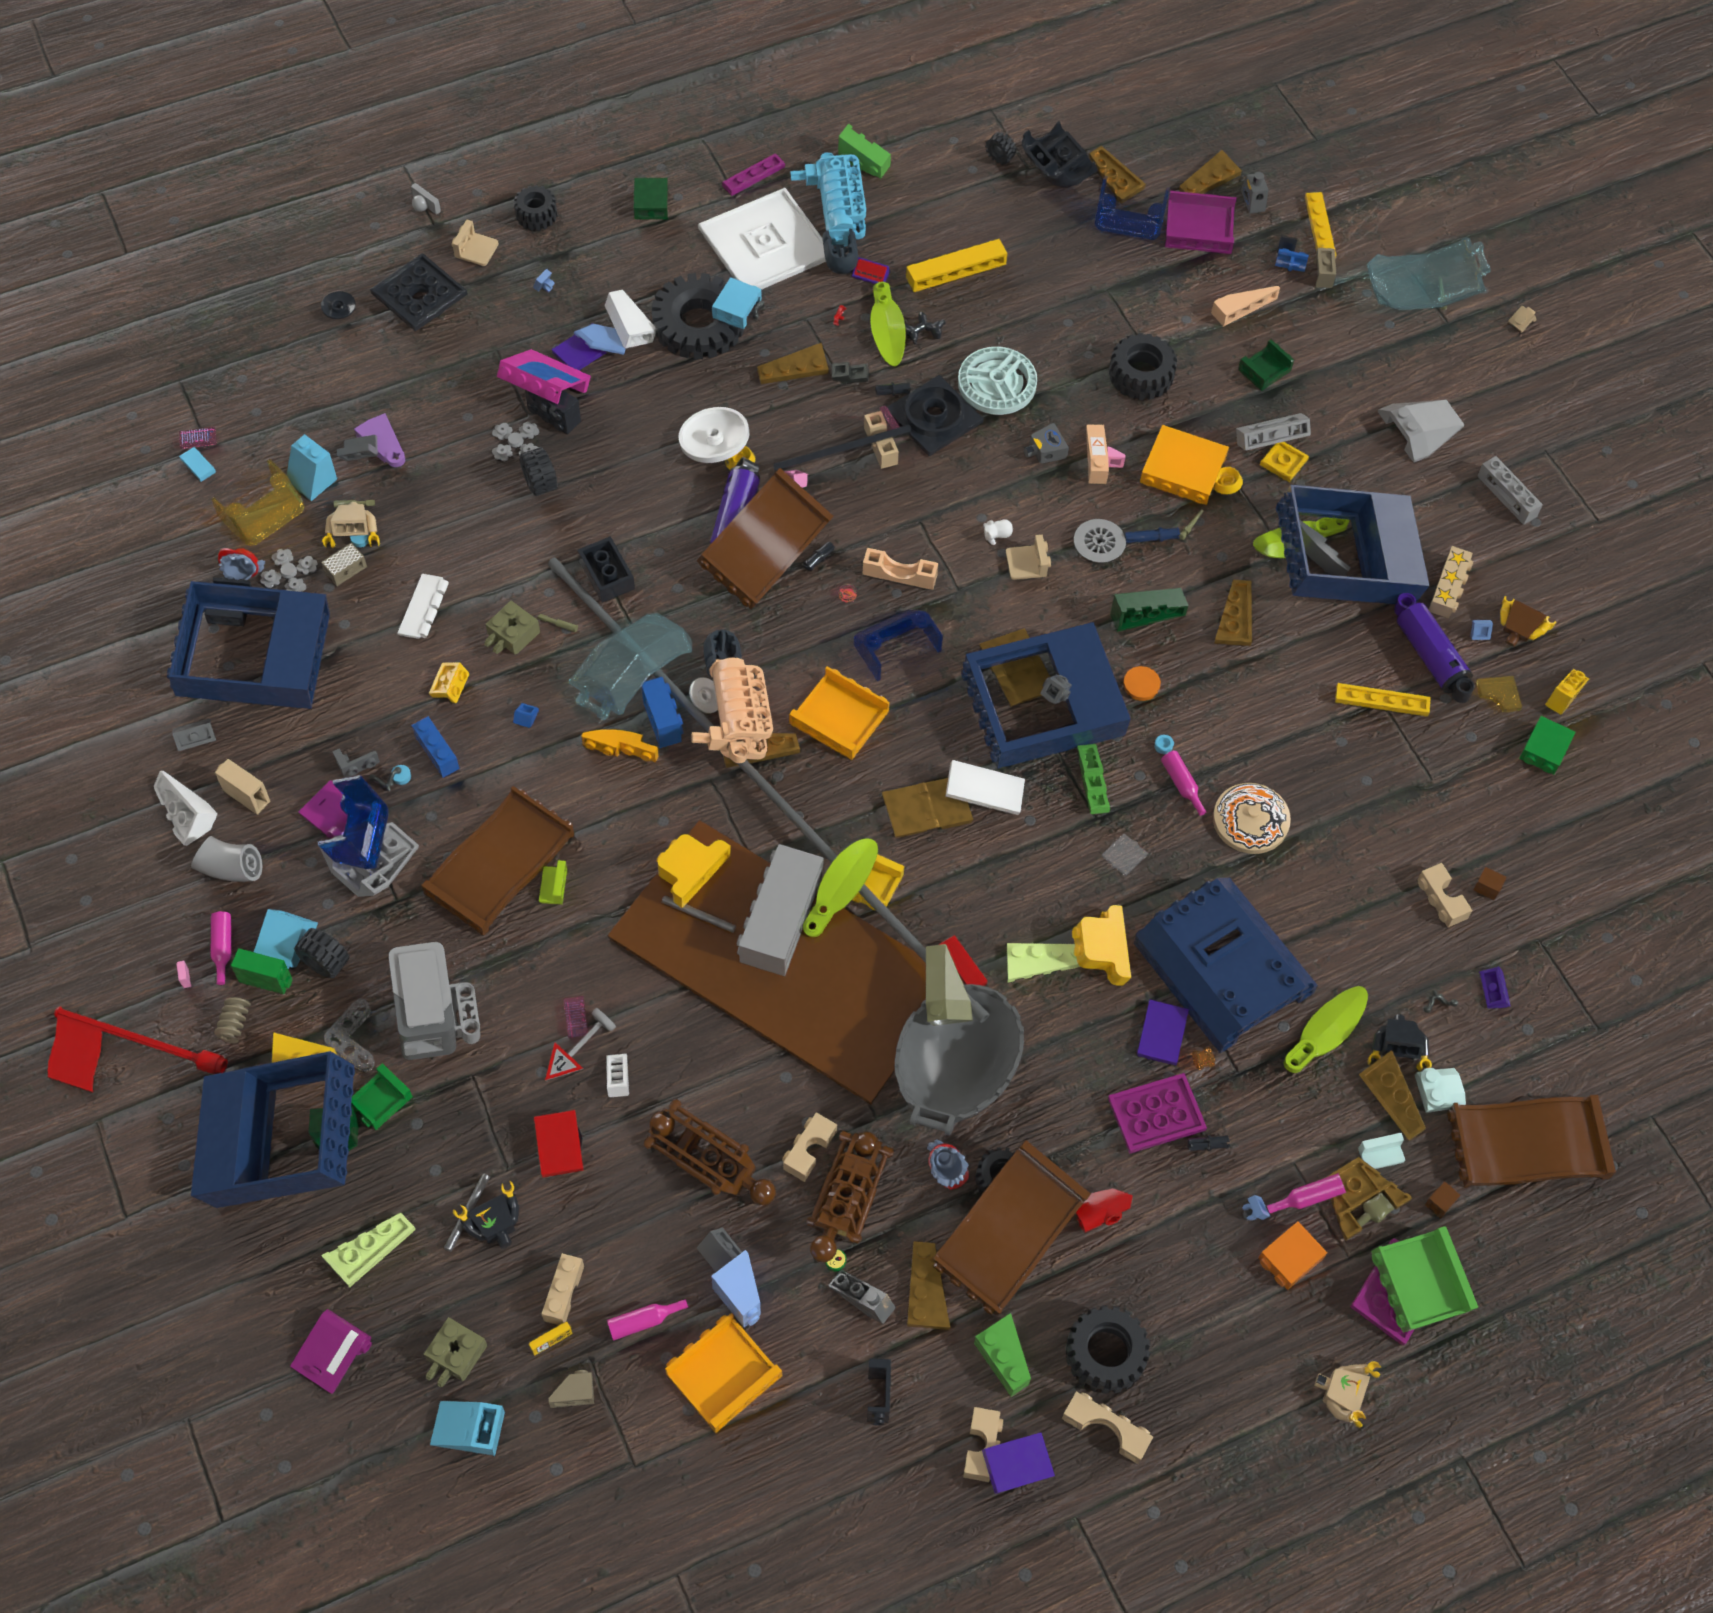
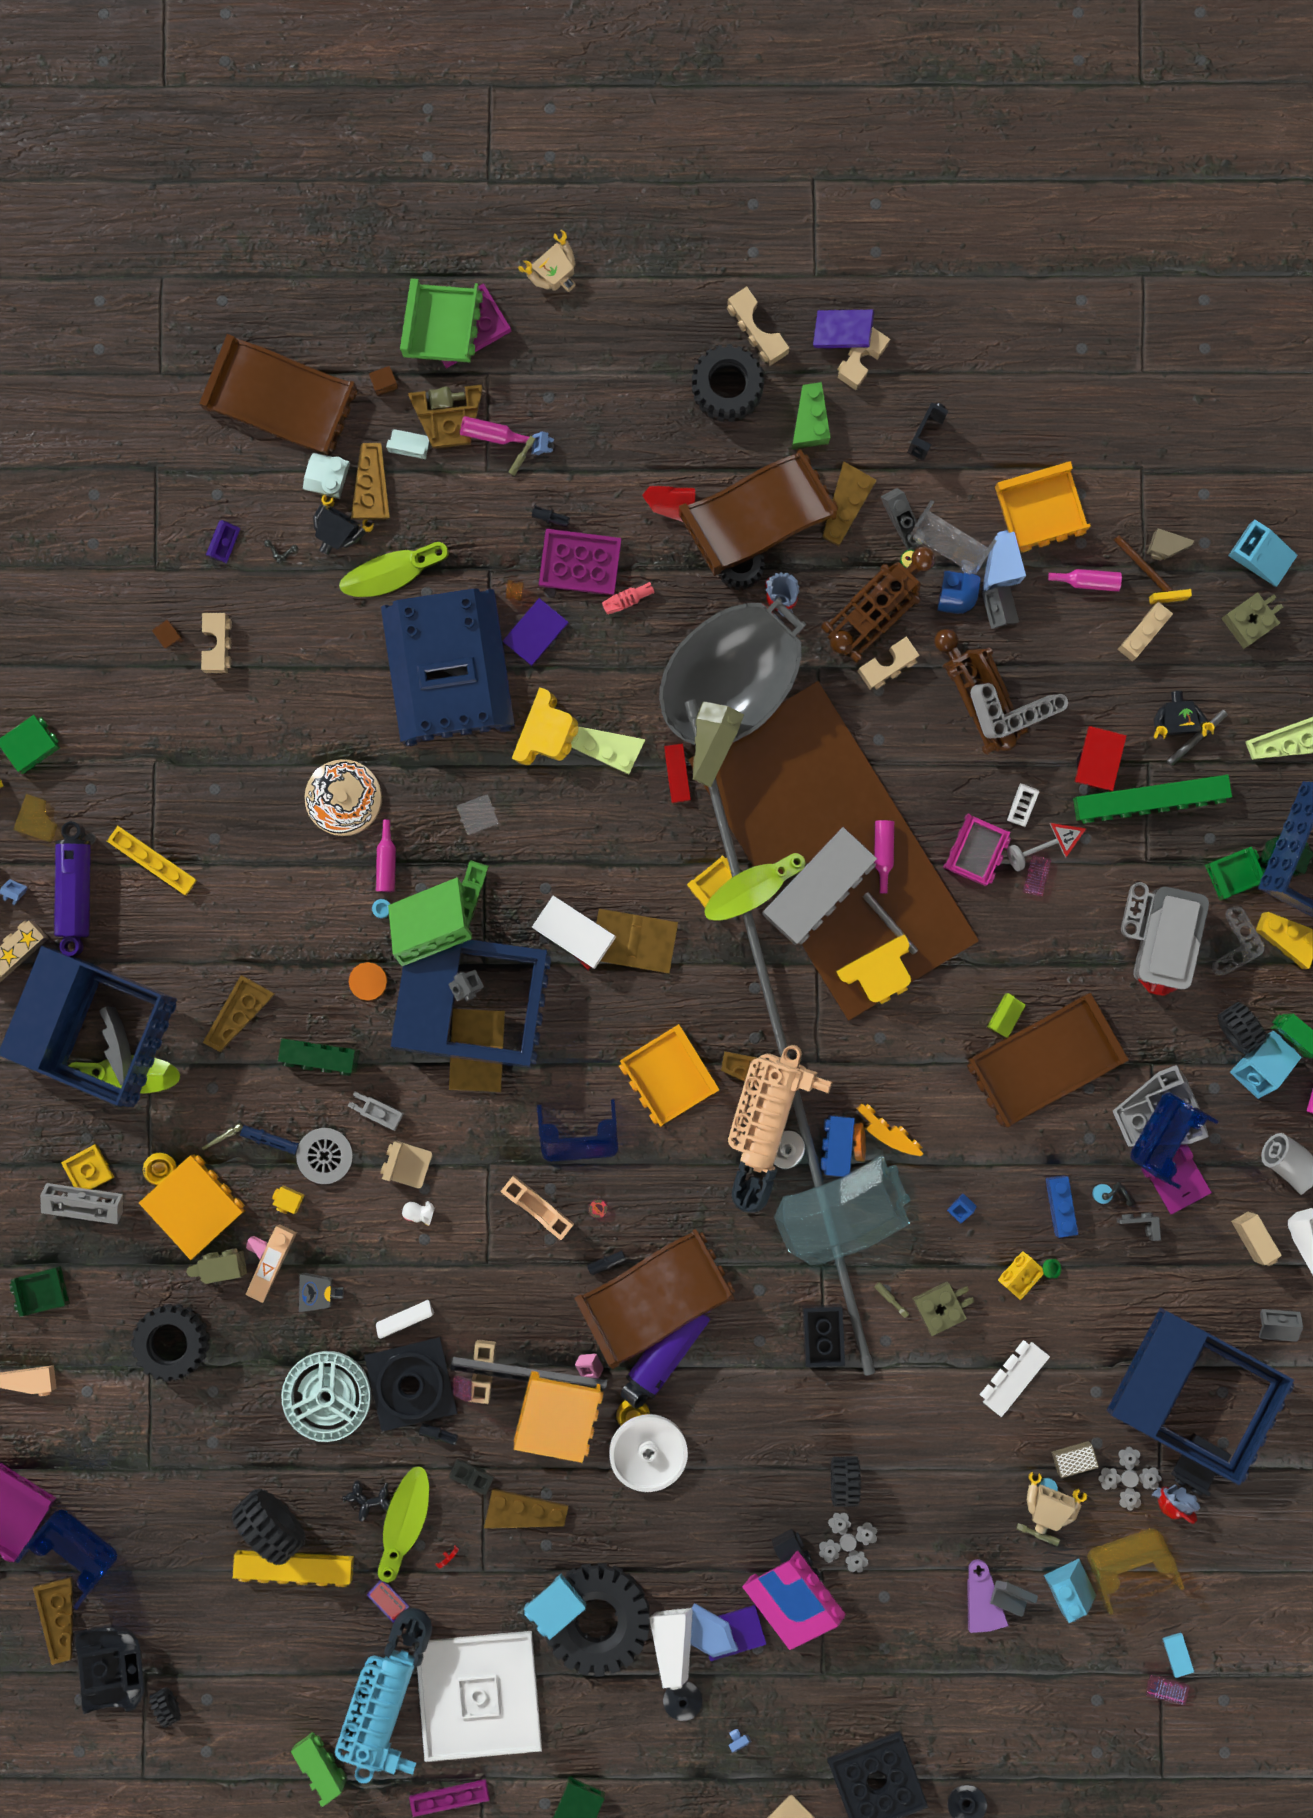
camera: 150 degrees left, 25 degrees up
(423, 697) = (1052, 1268): none -> green tile
(489, 1132) = (1150, 798): none -> green brick
(592, 1362) = (1142, 564): none -> reddish brown bar
(598, 291) = (690, 1694): none -> black dish
(643, 722) = (860, 1142): none -> orange tile
(644, 1012) = (977, 850): none -> window
(660, 1142) = (1001, 721): none -> light grey beam
(734, 971) = (884, 851): none -> dark pink piece
(771, 1248) = (958, 592): none -> blue brick
(801, 424) = (557, 1419): none -> light orange panel
(802, 1287) = (950, 541): none -> clear windscreen
(965, 454) = (404, 1319): none -> white slope
(997, 258) = (268, 1526): none -> black tyre
(1076, 589) = (377, 1111): none -> light grey hinge
(1093, 1098) = (627, 598): none -> coral hinge
(1110, 498) = (287, 1200): none -> yellow brick
(1118, 733) = (428, 922): none -> bright green panel
(1135, 428) = (219, 1267): none -> olive hinge
(1268, 1187) = (521, 457): none -> olive piece
(1292, 1255) = (535, 391): orange brick -> none

